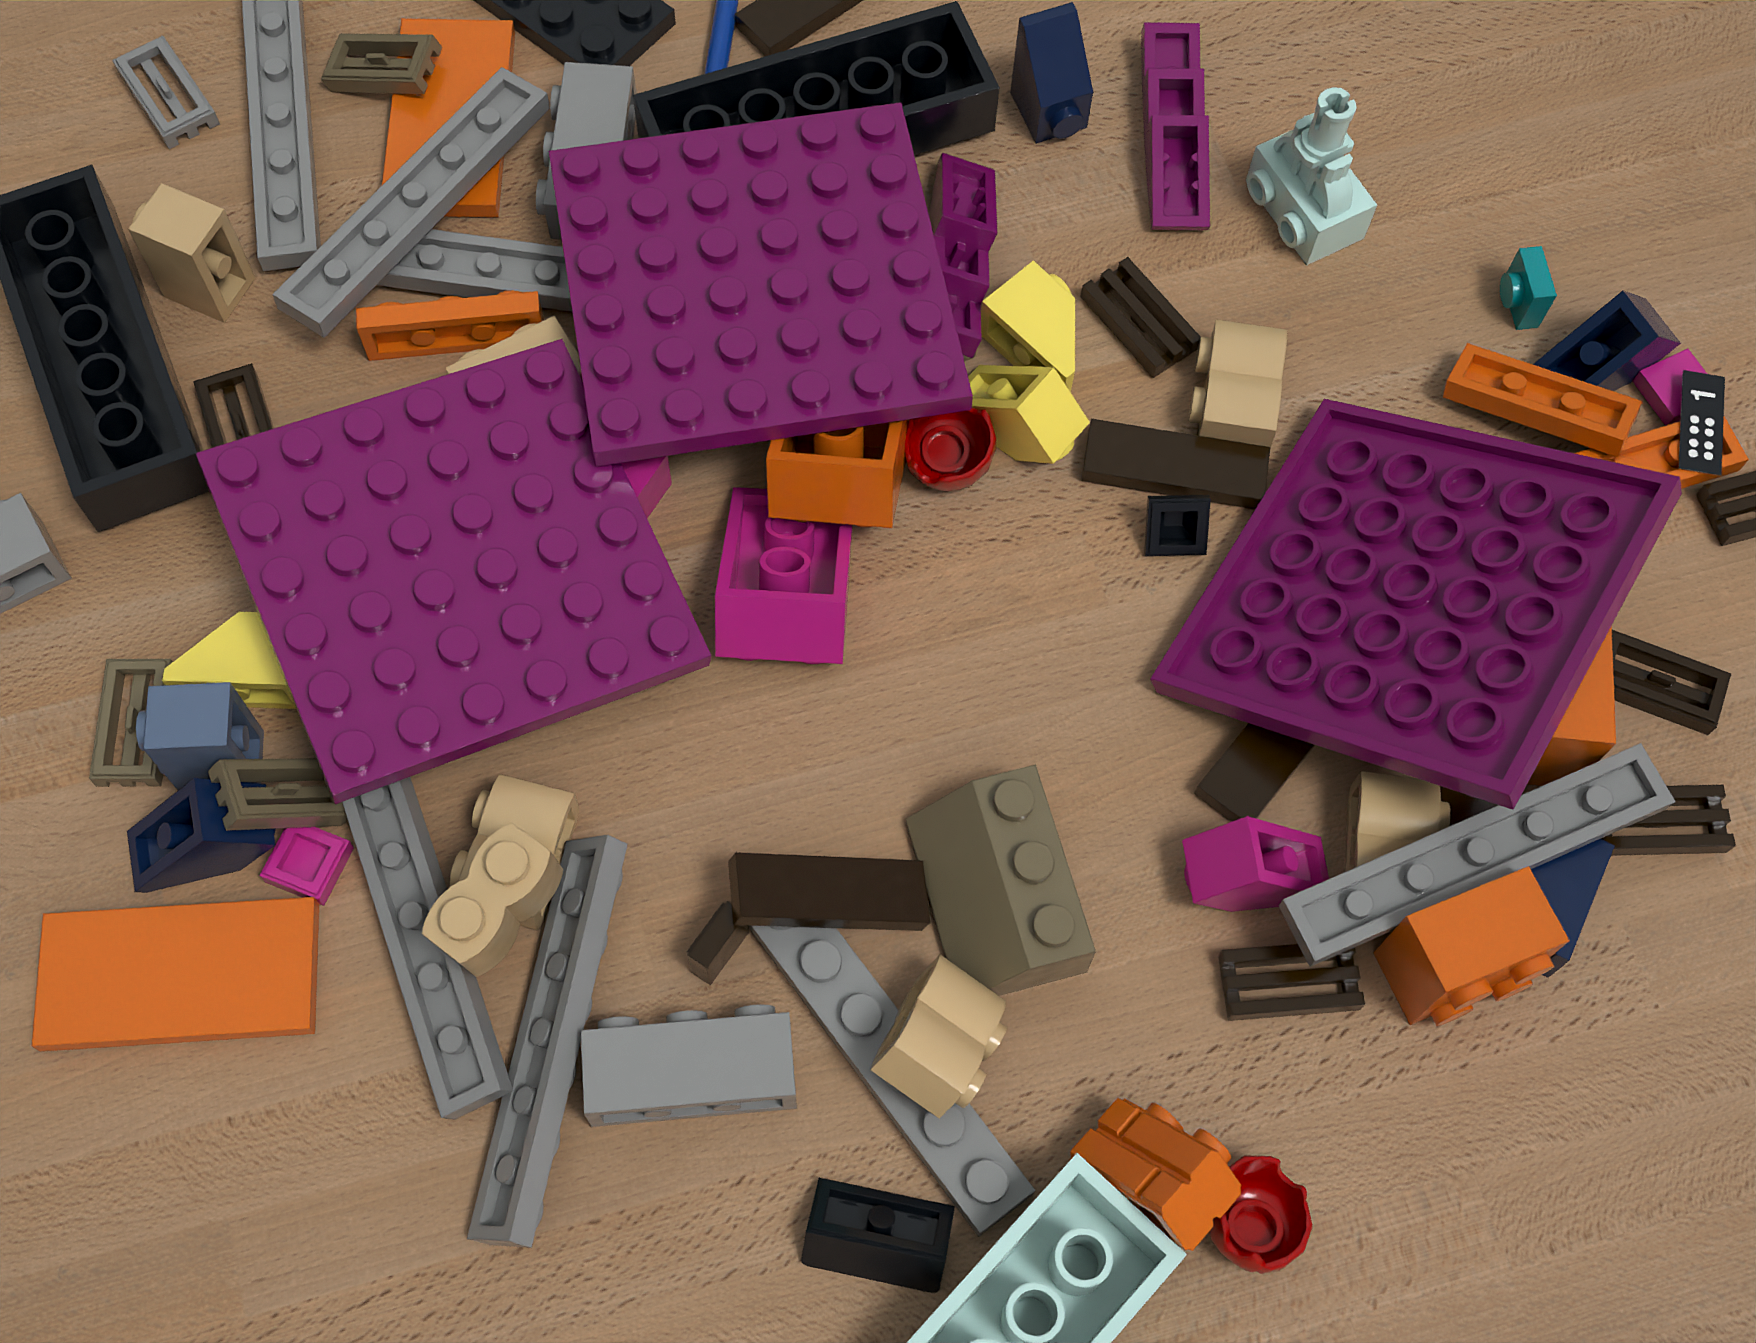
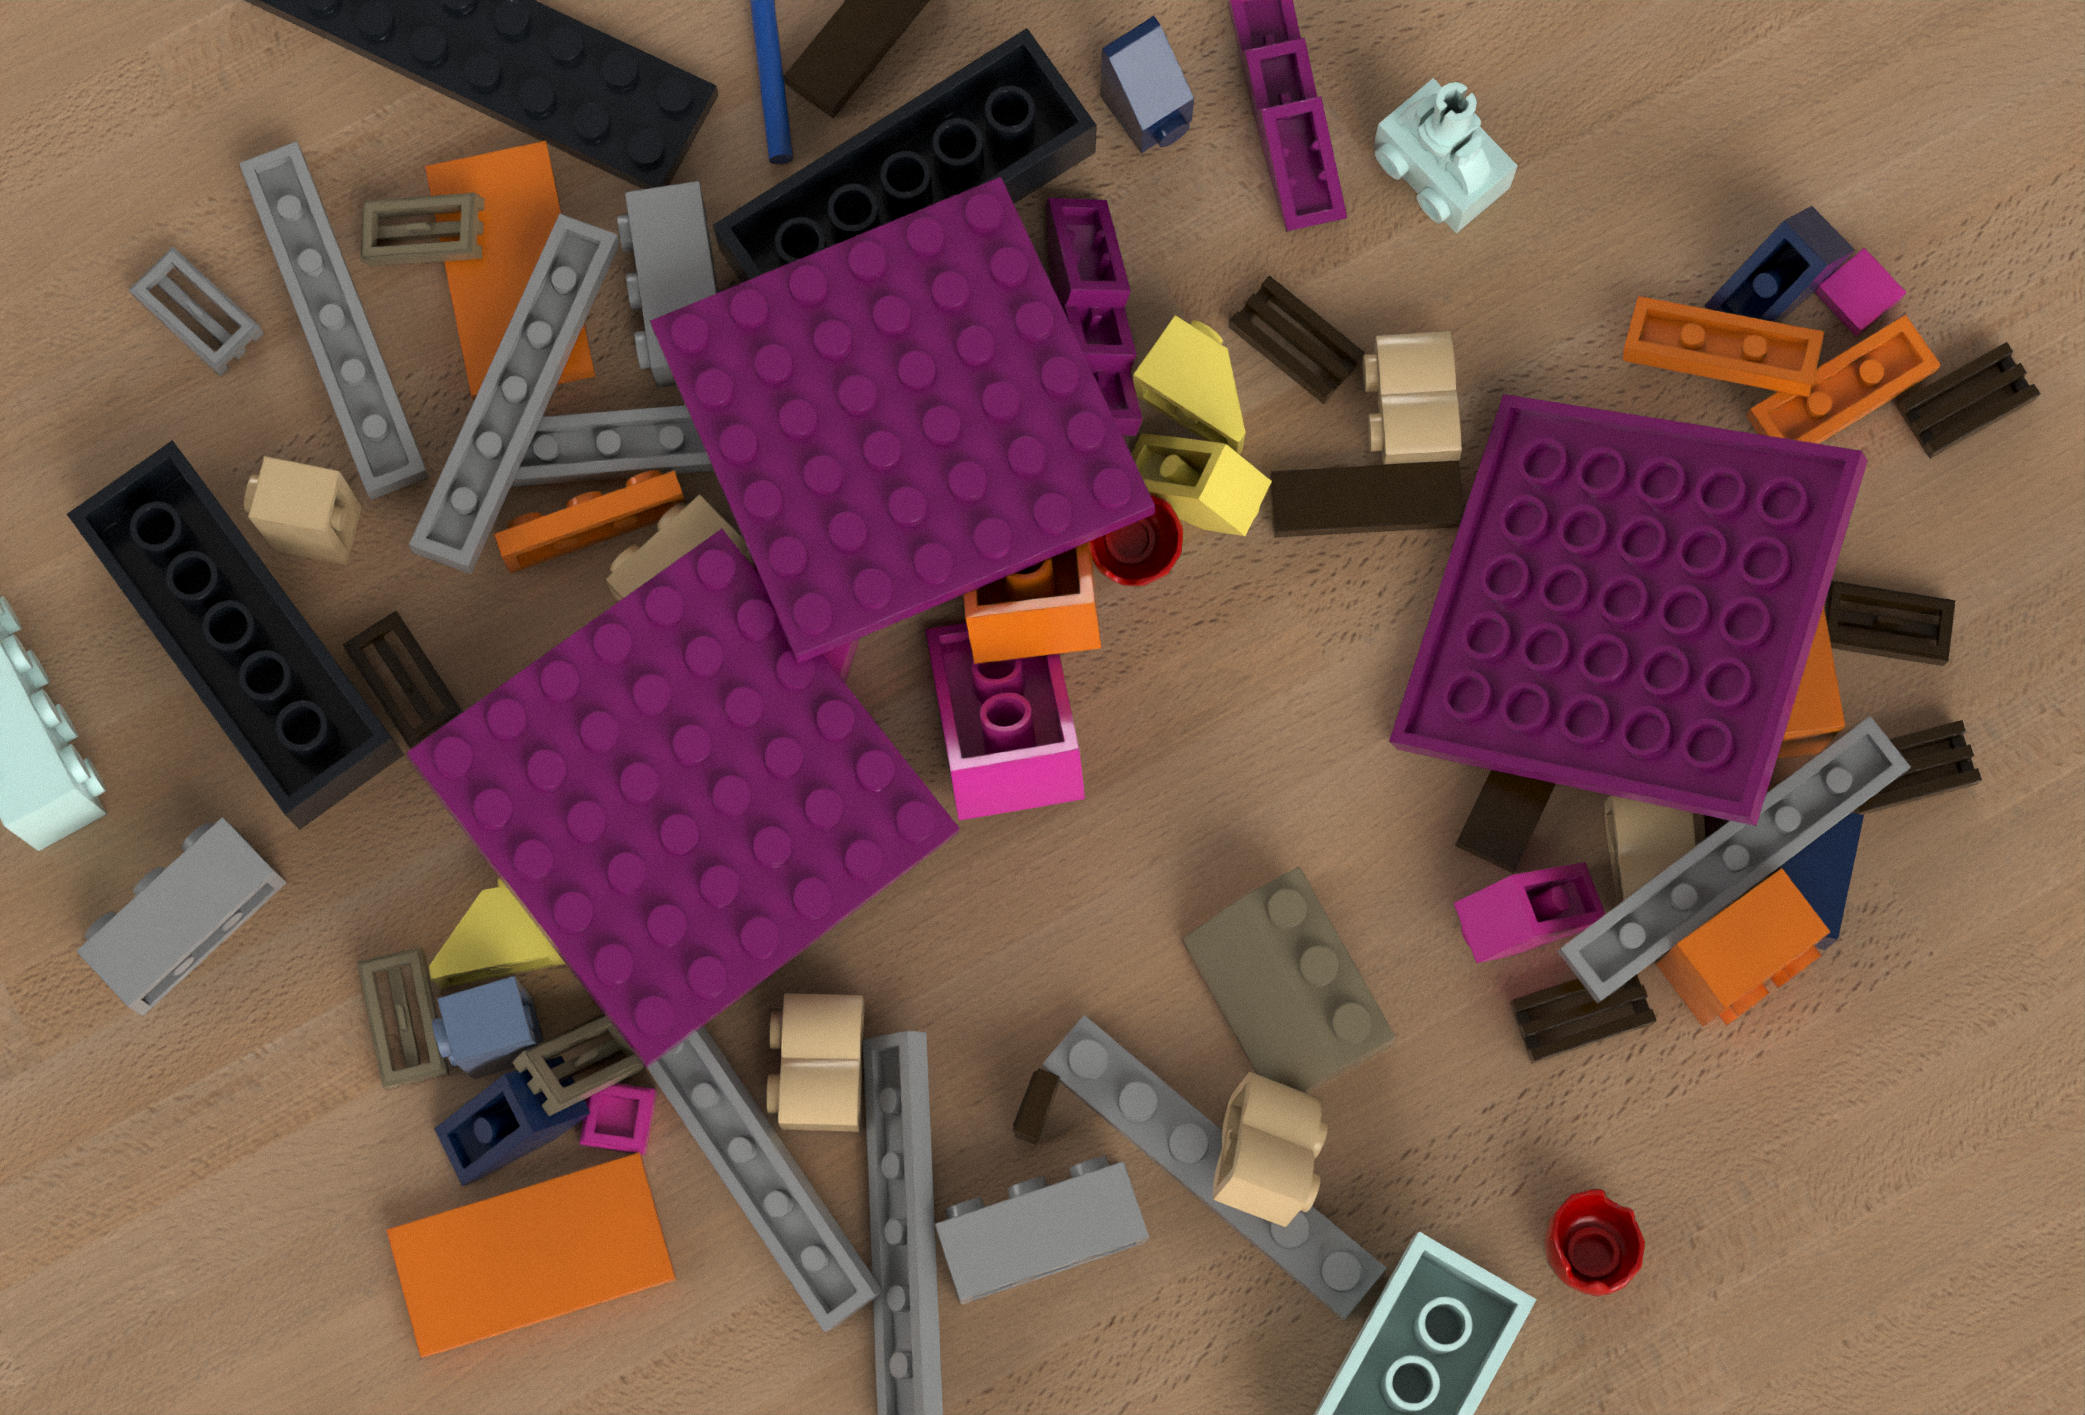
camera: 10 degrees left, 10 degrees up
(482, 914) = (817, 1142): tan brick -> none
(828, 892) = (1130, 1034): dark brown tile -> none
(878, 1235) = (1252, 1341): black slope -> none
(1162, 1169) = (1495, 1227): orange brick -> none
(1177, 525) = (1382, 570): black slope -> none
(1528, 288) = (1689, 218): teal plate -> none
(1702, 422) = (1888, 334): black sticker -> none

